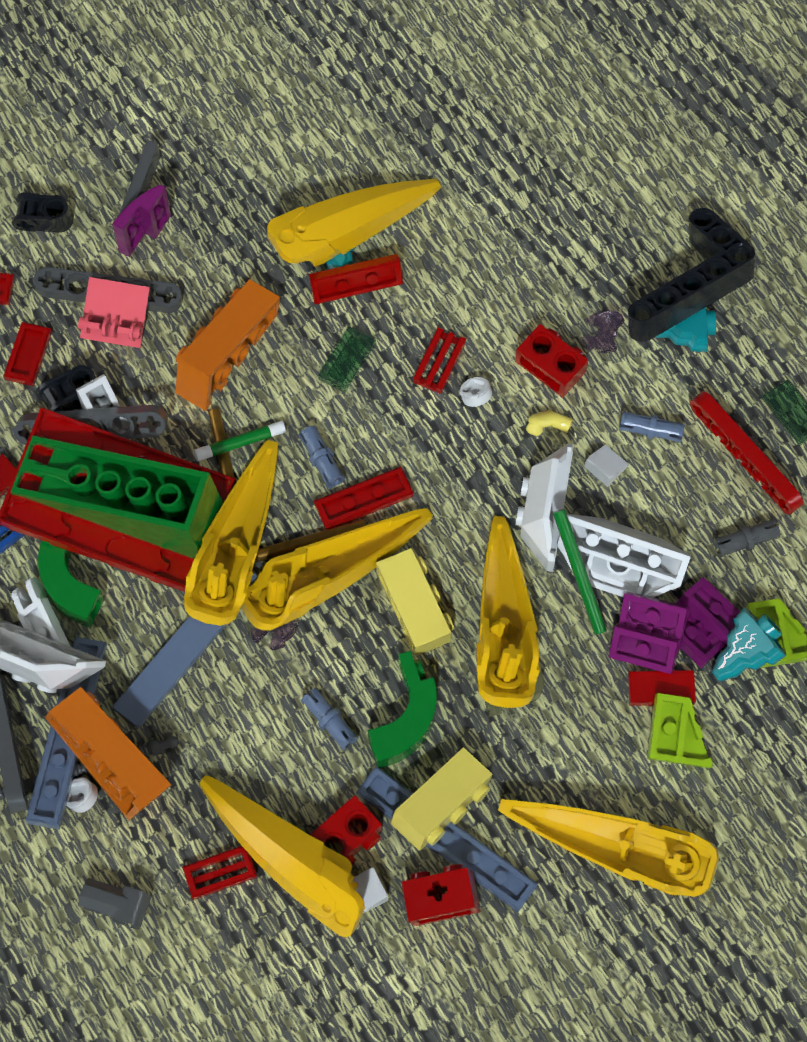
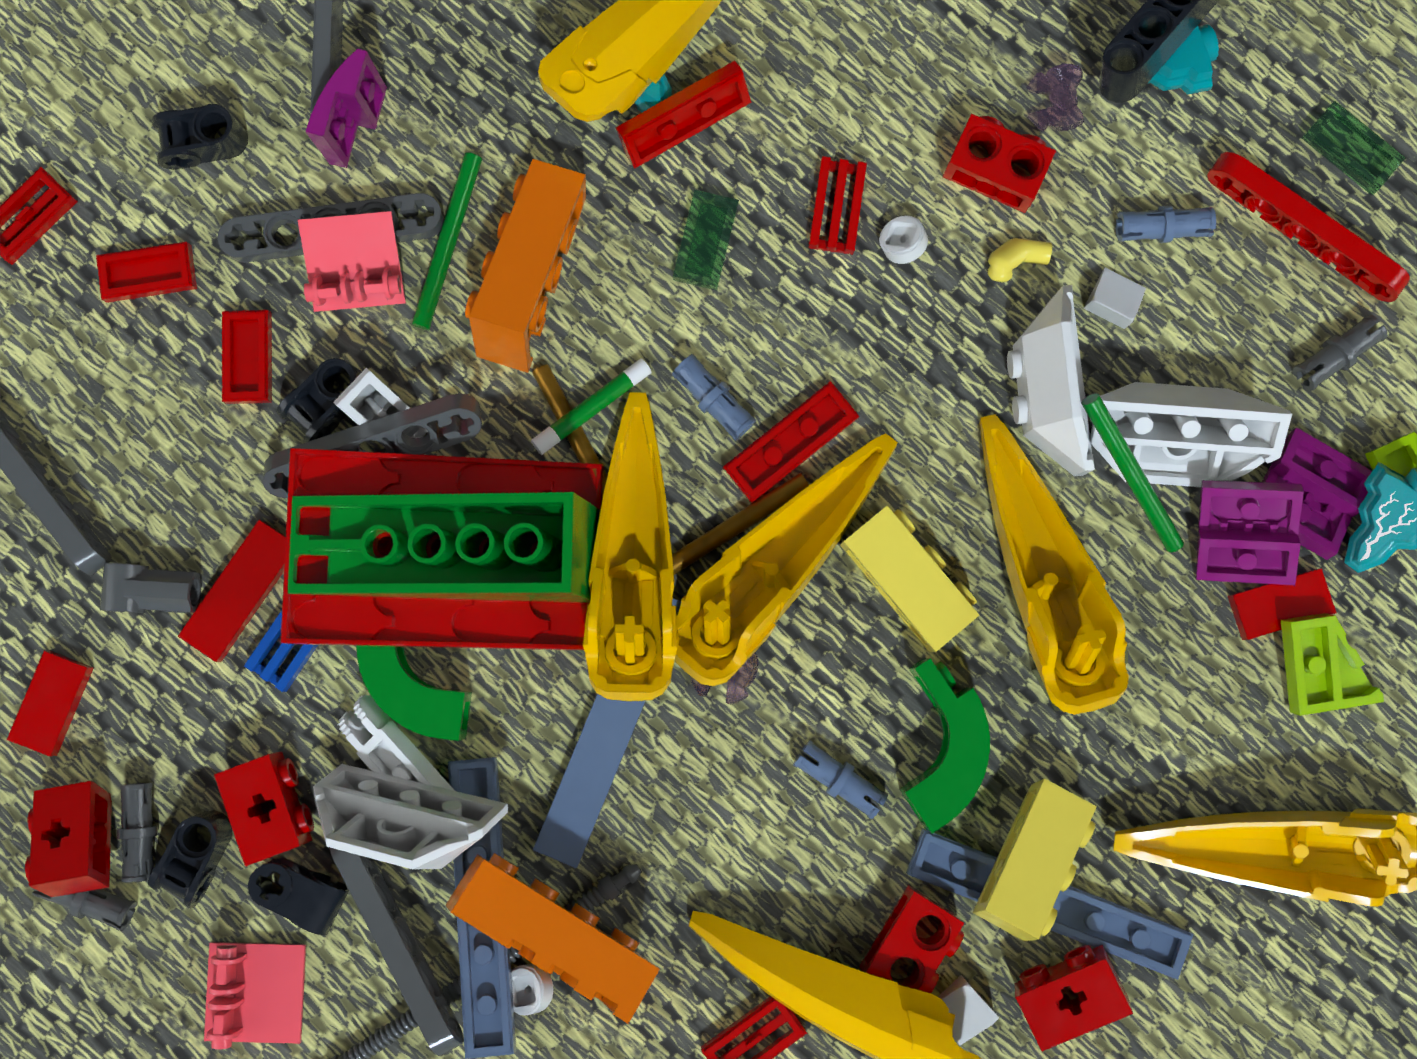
camera: 15 degrees left, 15 degrees up
(179, 317) = (447, 241): none -> green bar

